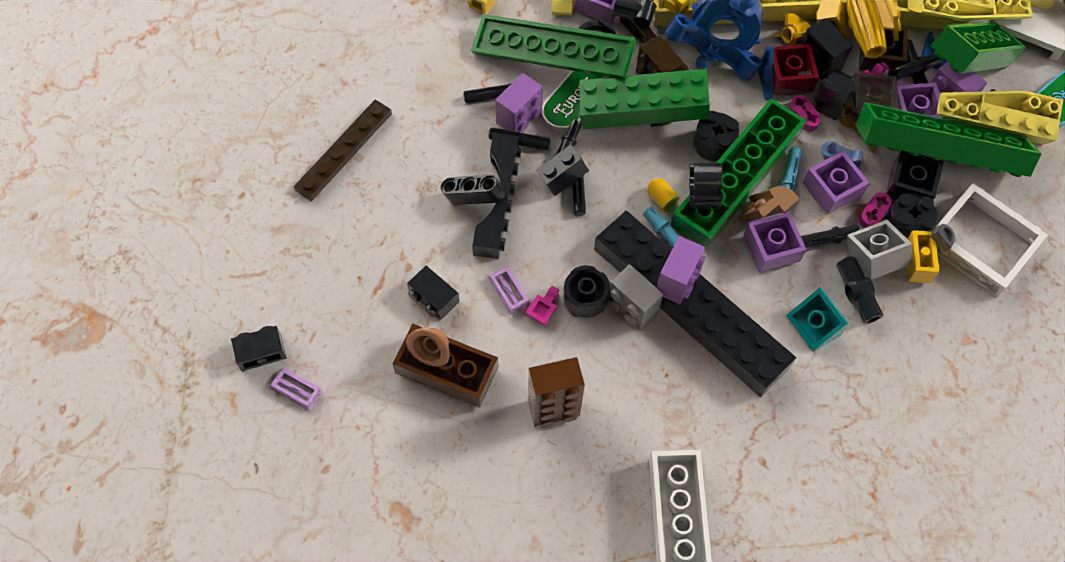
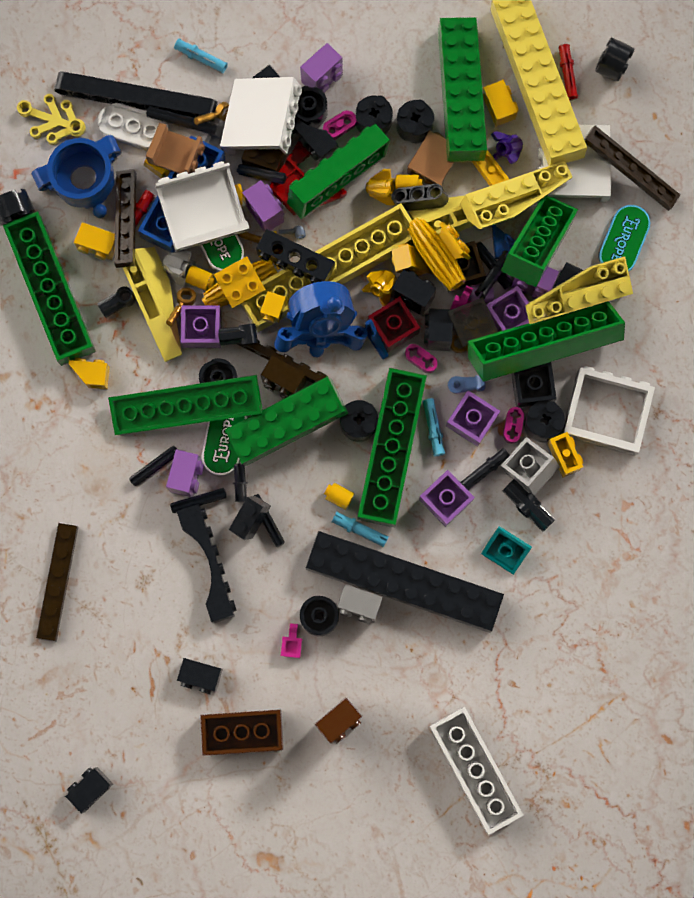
camera: 25 degrees left, 15 degrees up
(311, 398) = (133, 805): lavender tile -> none
(429, 346) = (226, 731): nougat hat -> none
(472, 189) = (194, 570): black beam -> none
(517, 305) = (270, 649): lavender tile -> none
(681, 270) = (387, 573): medium lavender brick -> none
(705, 185) = (374, 486): black brick -> none
(768, 203) = (426, 468): medium nougat brick -> none
(943, 236) = (575, 432): dark grey tile -> none

